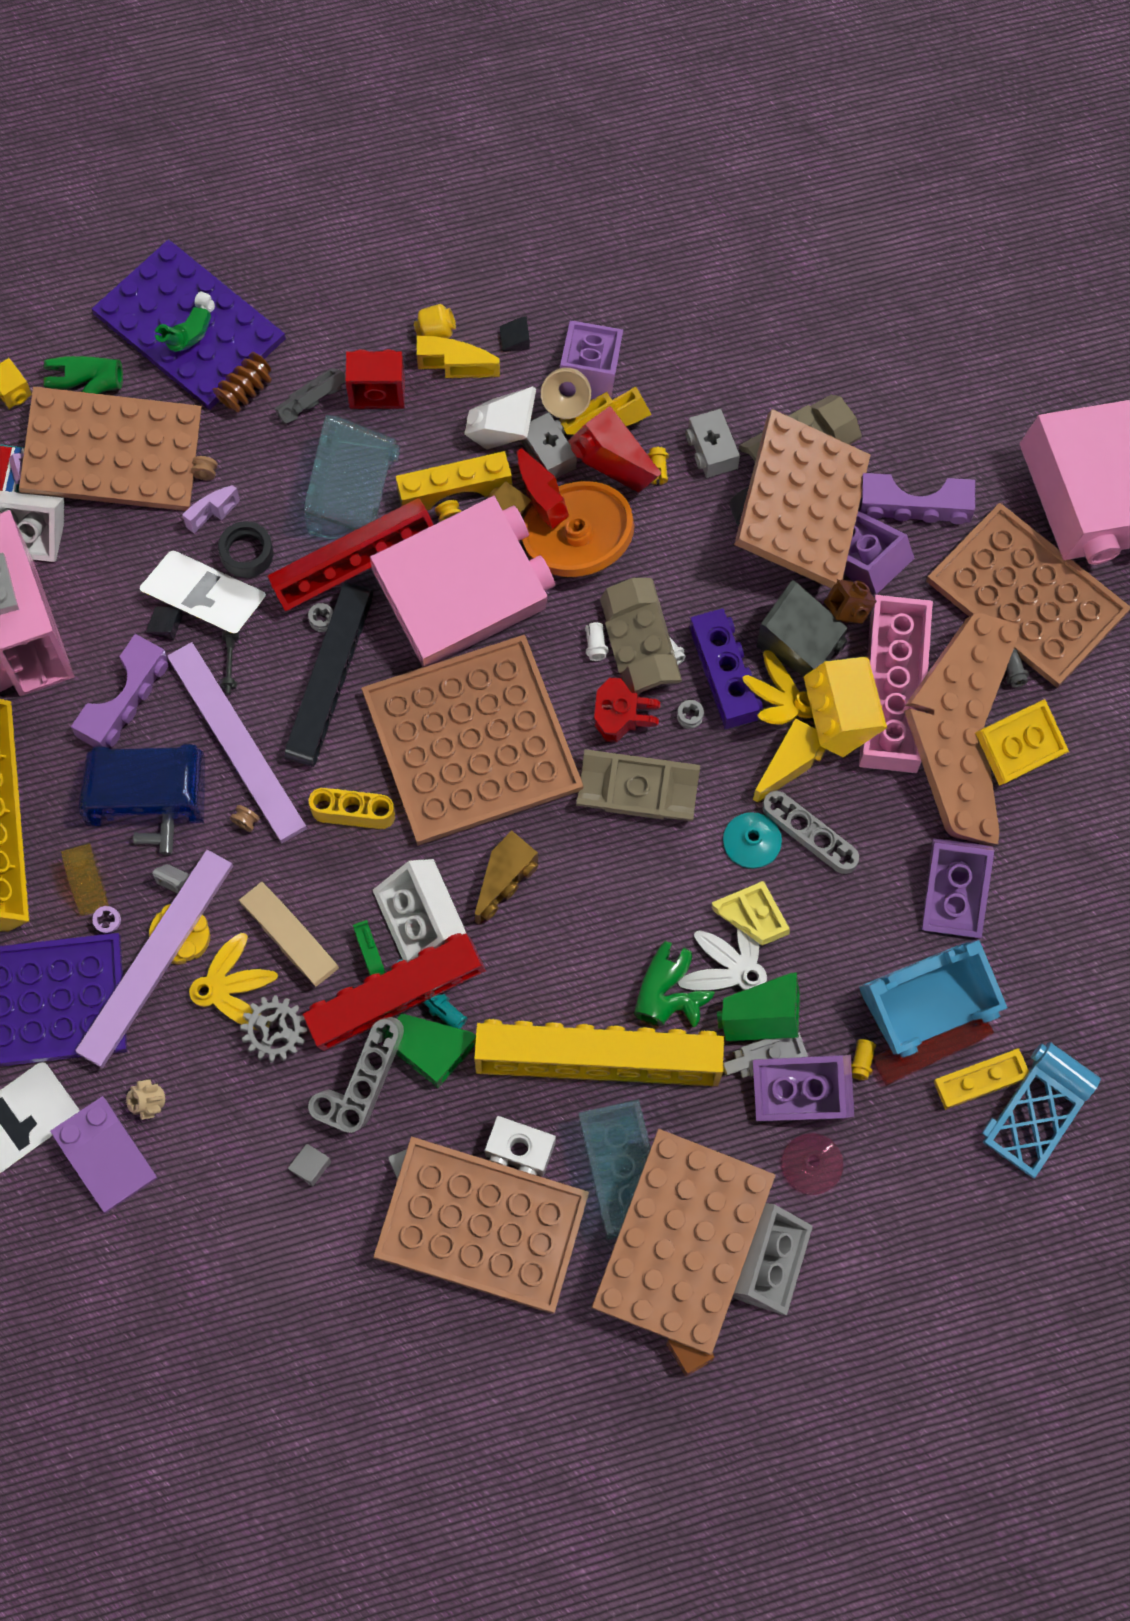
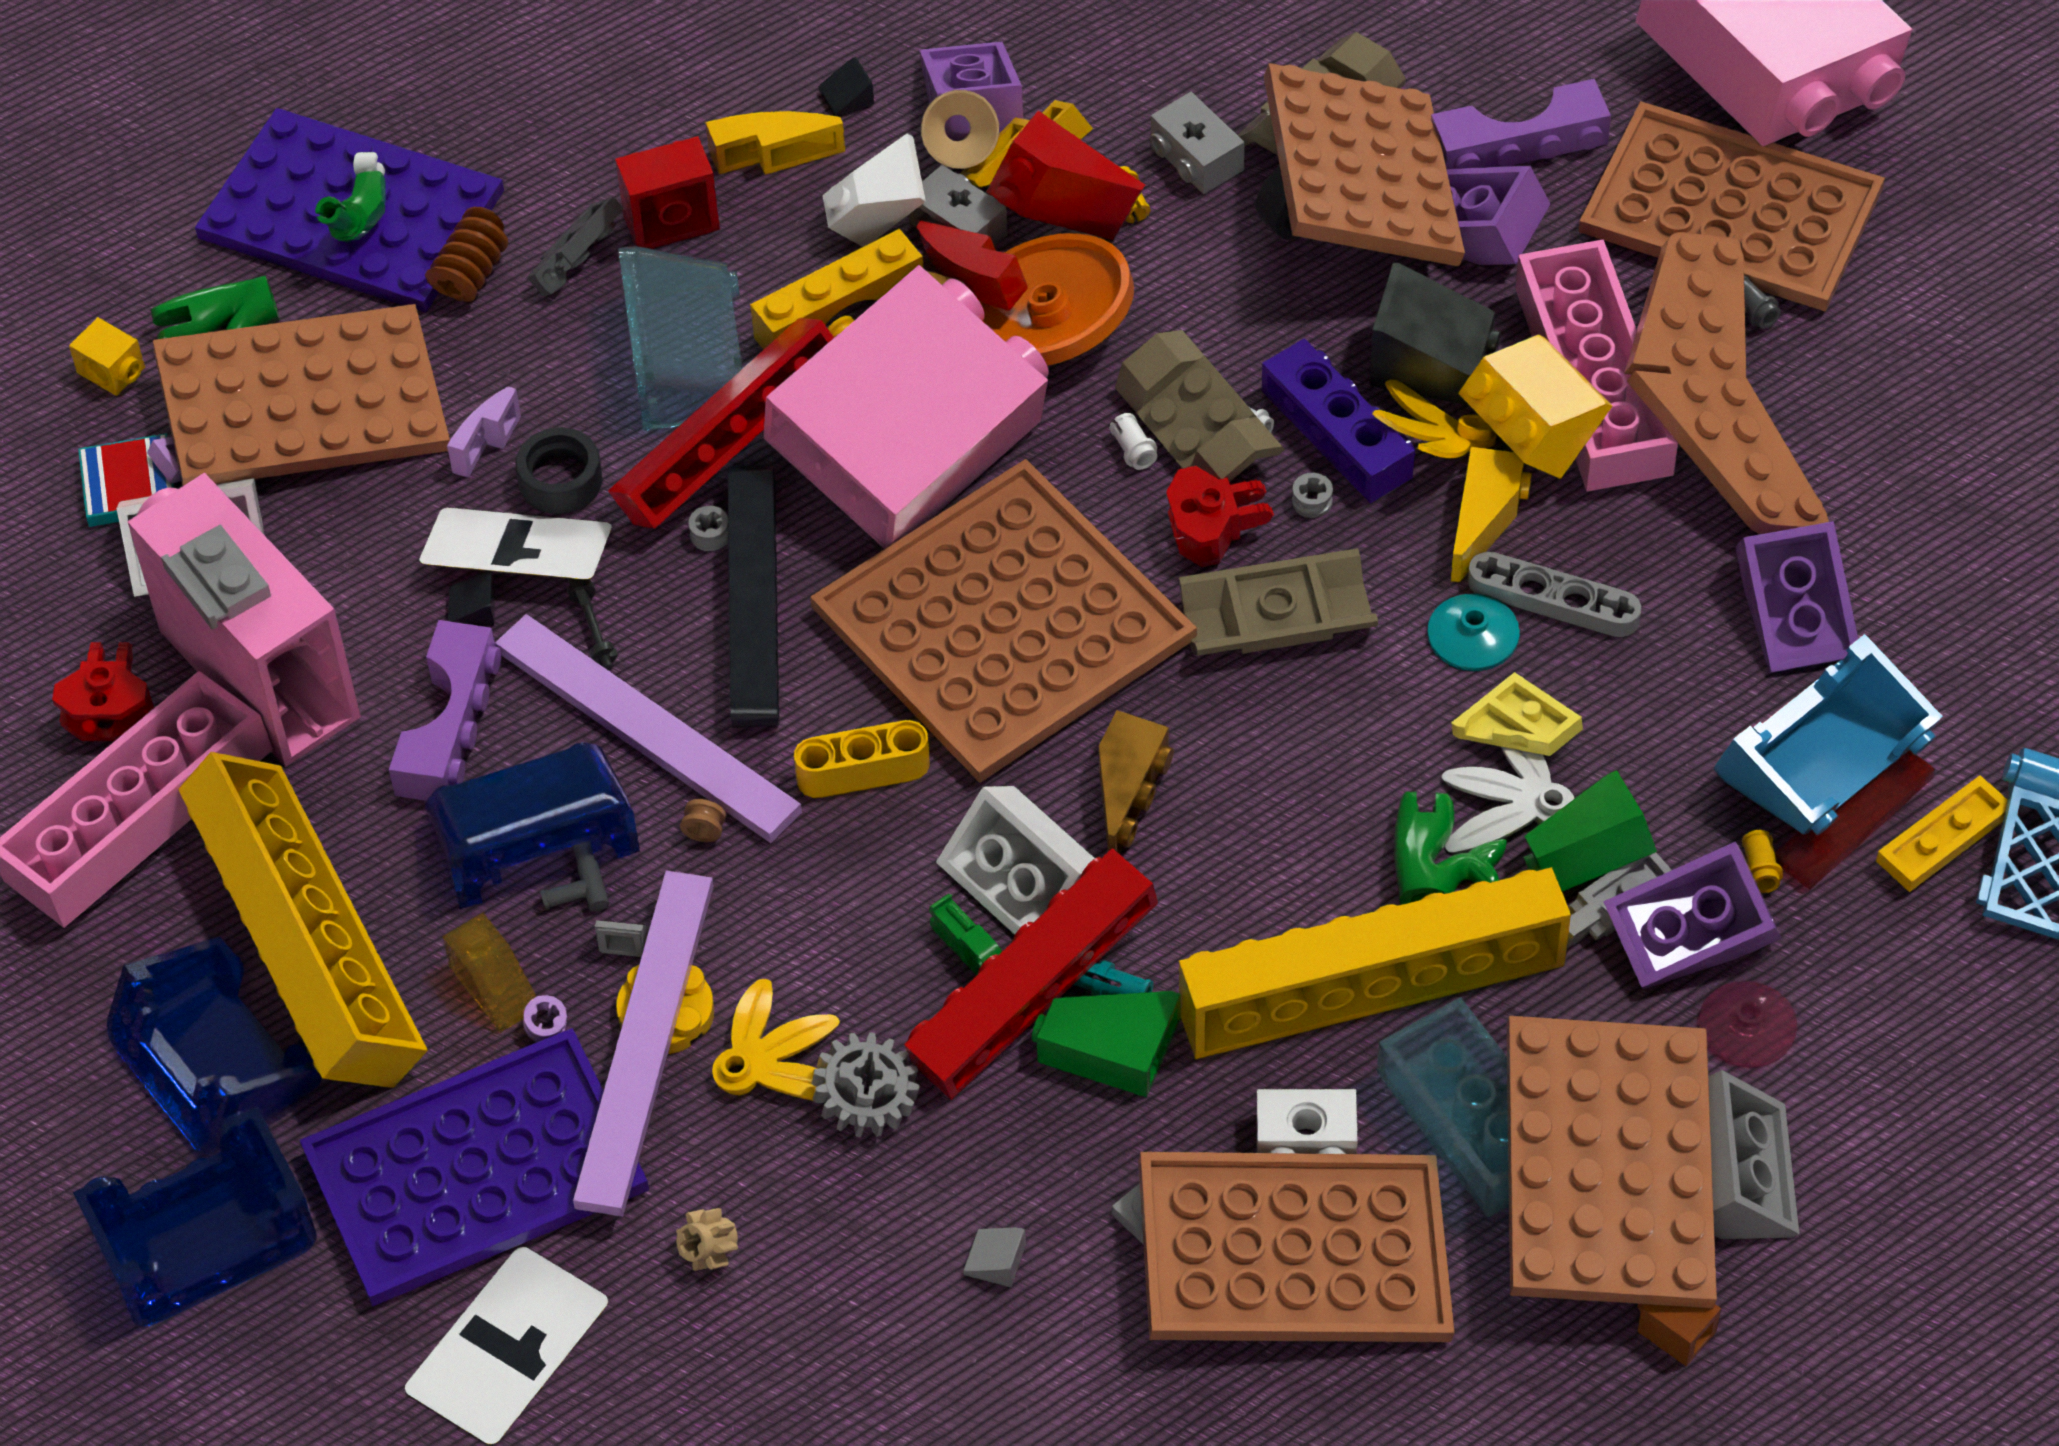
camera: 15 degrees left, 15 degrees down
(103, 1154) = (669, 1335): medium lavender slope -> none
(204, 468) = (452, 383): medium nougat bush -> none
(289, 934) = (831, 948): tan slope -> none
(363, 1072) = (1031, 1092): light grey beam -> none
(435, 322) = (721, 99): yellow head -> none
(850, 601) = (1486, 274): reddish brown brick -> none
(1022, 742) = (1808, 384): yellow tile -> none

